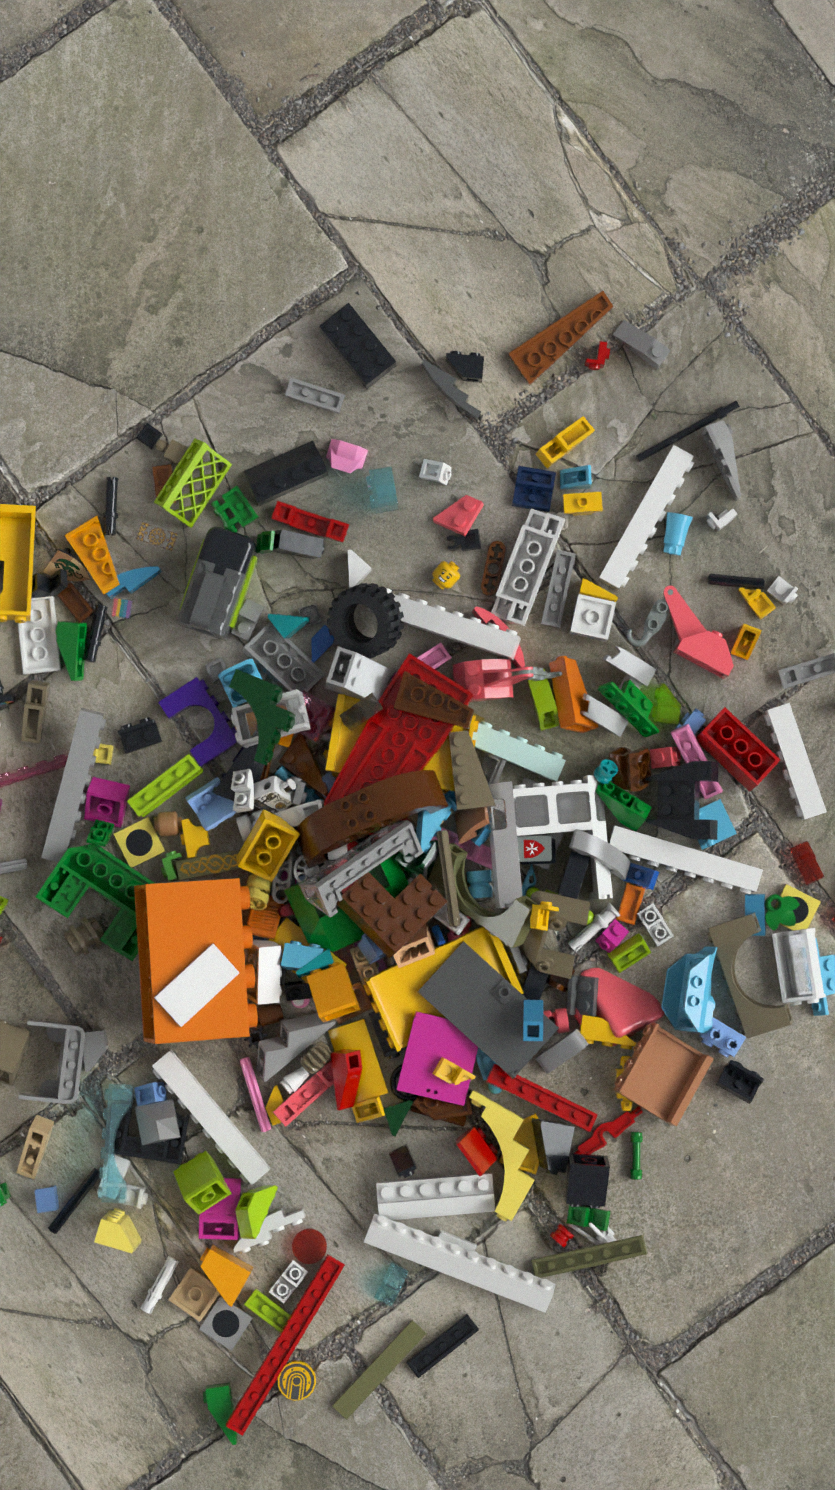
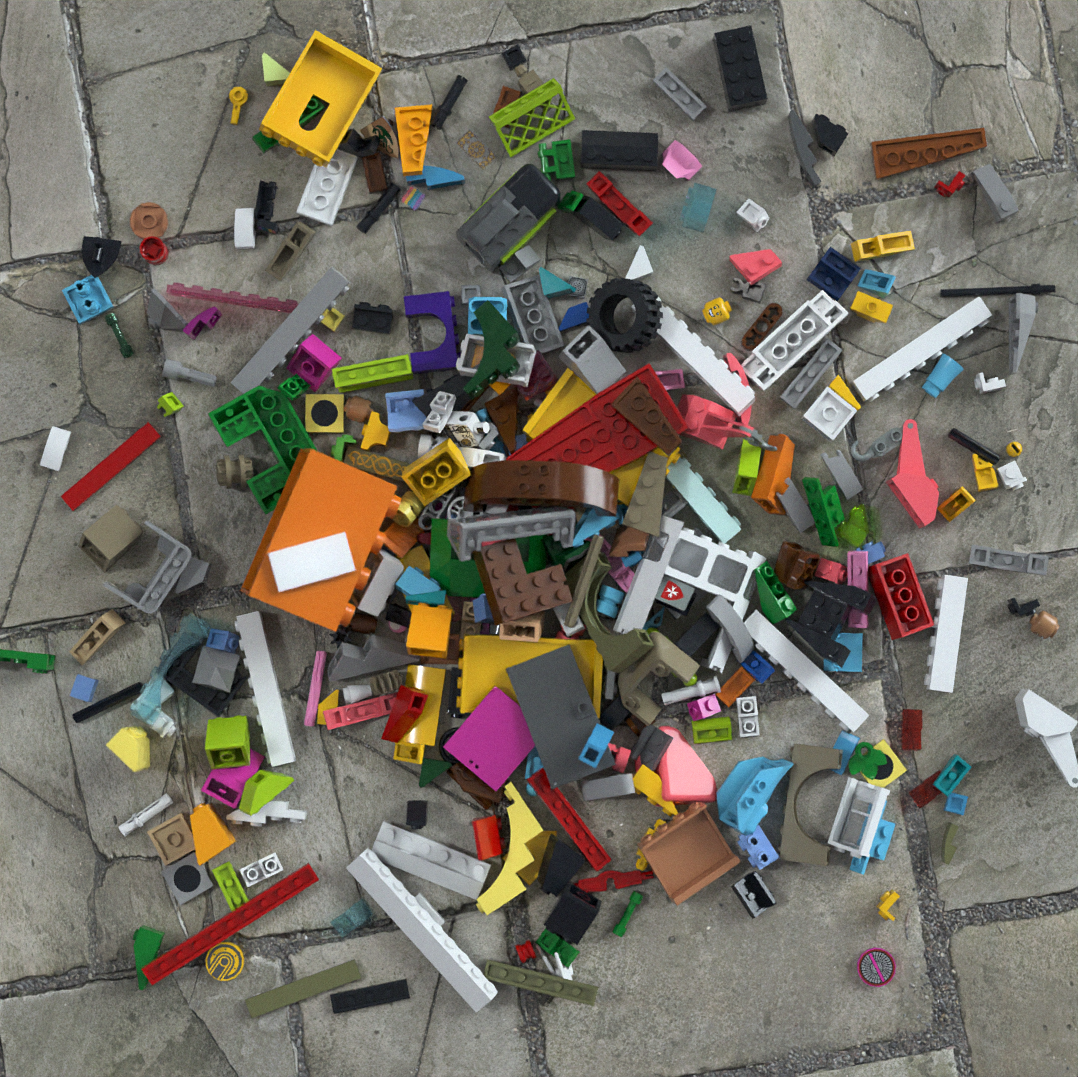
camera: 25 degrees right, 0 degrees up
(72, 644) = (352, 209): green slope -> none
(309, 1246) = (296, 847): clear red piece -> none
(361, 711) = (580, 393): clear smoke brick -> none
(438, 934) = (549, 628): blue tile -> none
(451, 1072) = (499, 756): yellow slope -> none
(540, 915) = (650, 653): yellow bracket -> none
(605, 771) = (772, 556): teal wheel -> none
(771, 569) = (1011, 451): none -> yellow hinge

